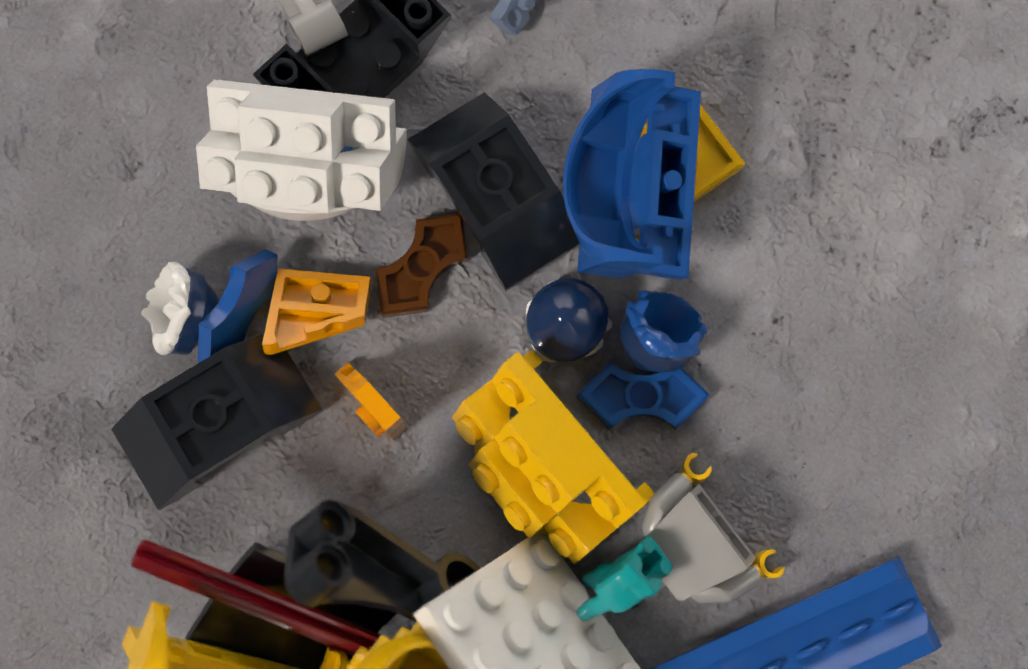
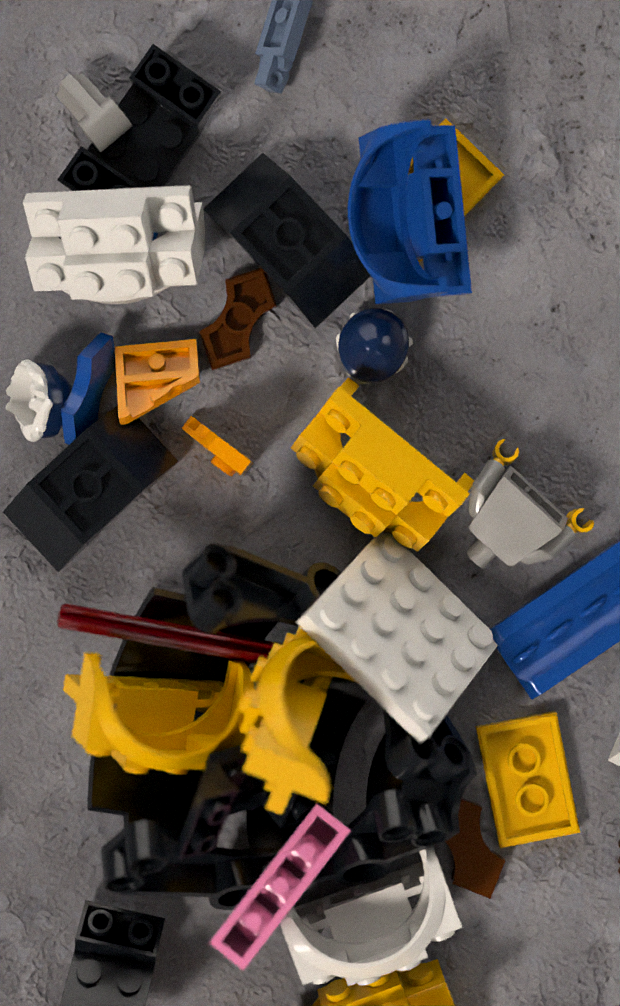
camera: 10 degrees left, 10 degrees up
(622, 395) = (430, 400): blue tile -> none
(625, 580) = (463, 558): teal animal -> none
(661, 331) = (456, 340): blue hair -> none

